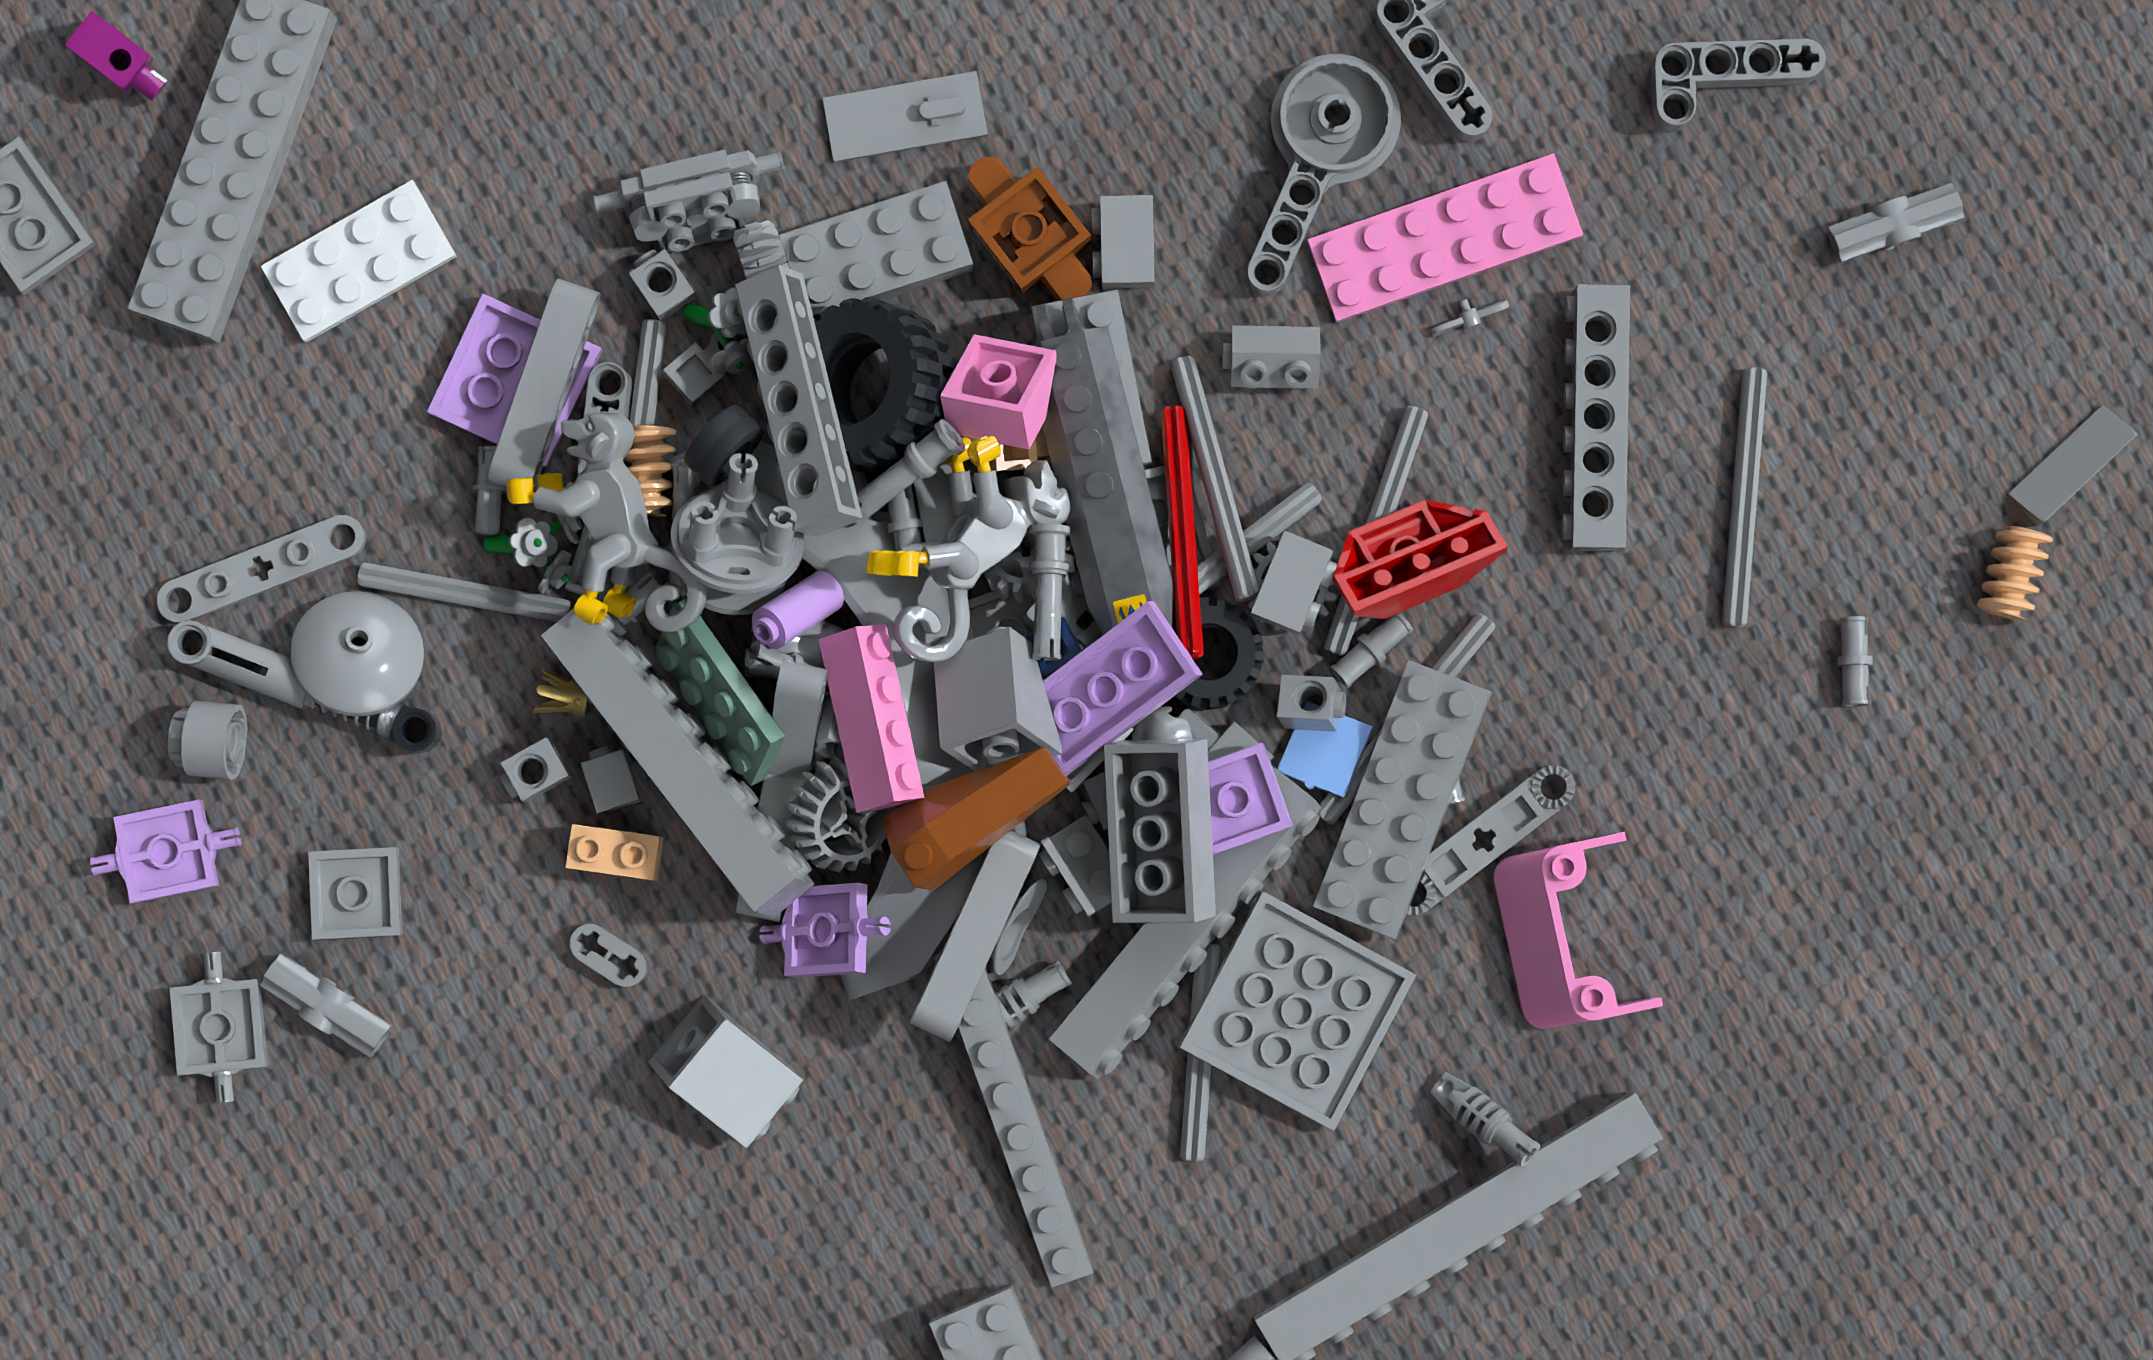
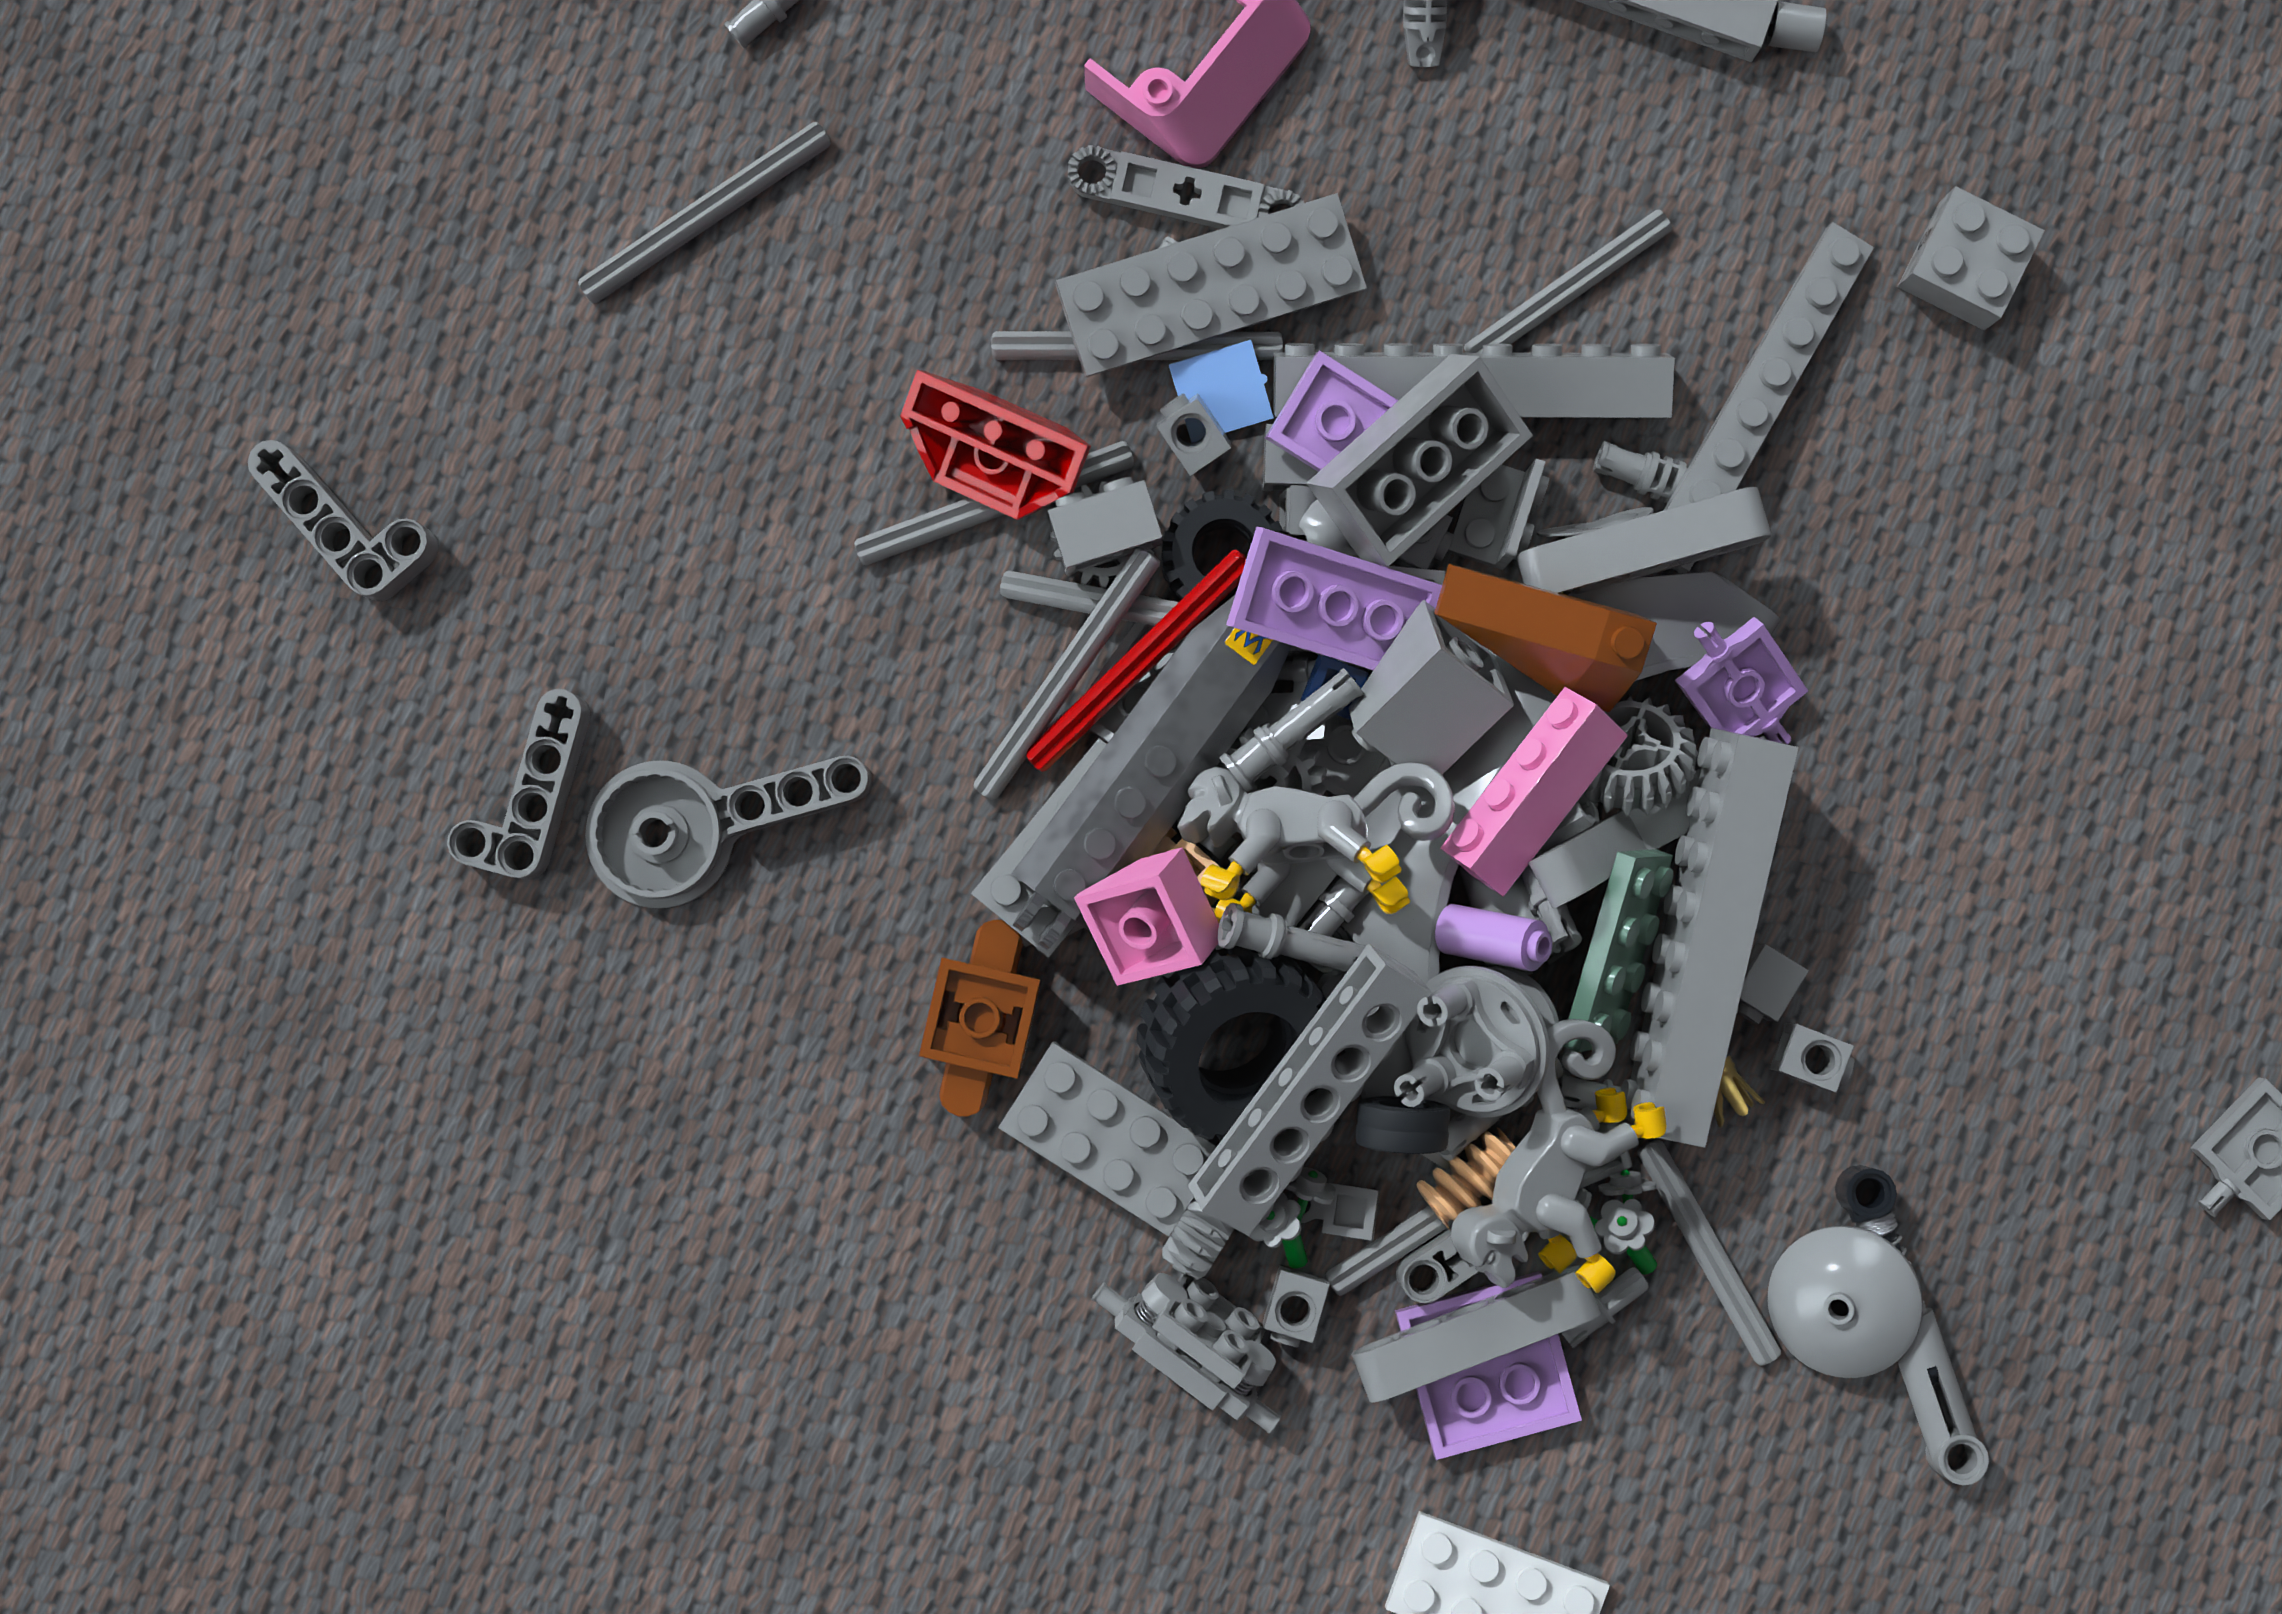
camera: 135 degrees left, 0 degrees up
(165, 851) = (2154, 1324): lavender plate -> none
(209, 739) = (2030, 1368): light grey piece -> none
(231, 580) = (1868, 1469): light grey piece -> none
(326, 1005) = (2166, 1070): light grey piece -> none
(355, 893) = (2049, 1126): light grey plate -> none
(603, 964) = (1902, 863): light grey beam -> none
(614, 852) = (1826, 928): light nougat brick -> none
(725, 1072) = (1933, 675): slope -> none
(905, 116) = (968, 1215): light grey piece -> none
(1126, 241) = (920, 927): light grey brick -> none
(1273, 357) = (916, 712): light grey brick -> none
(1297, 1010) = (1467, 229): light grey plate -> none
(1371, 649) = (1103, 422): light grey pin -> none
(1445, 238) = (688, 652): bright pink plate -> none
(1469, 317) = (739, 574): light grey piece -> none
(1611, 307) = (747, 362): light grey brick -> none
(1895, 222) = (356, 273): light grey piece -> none

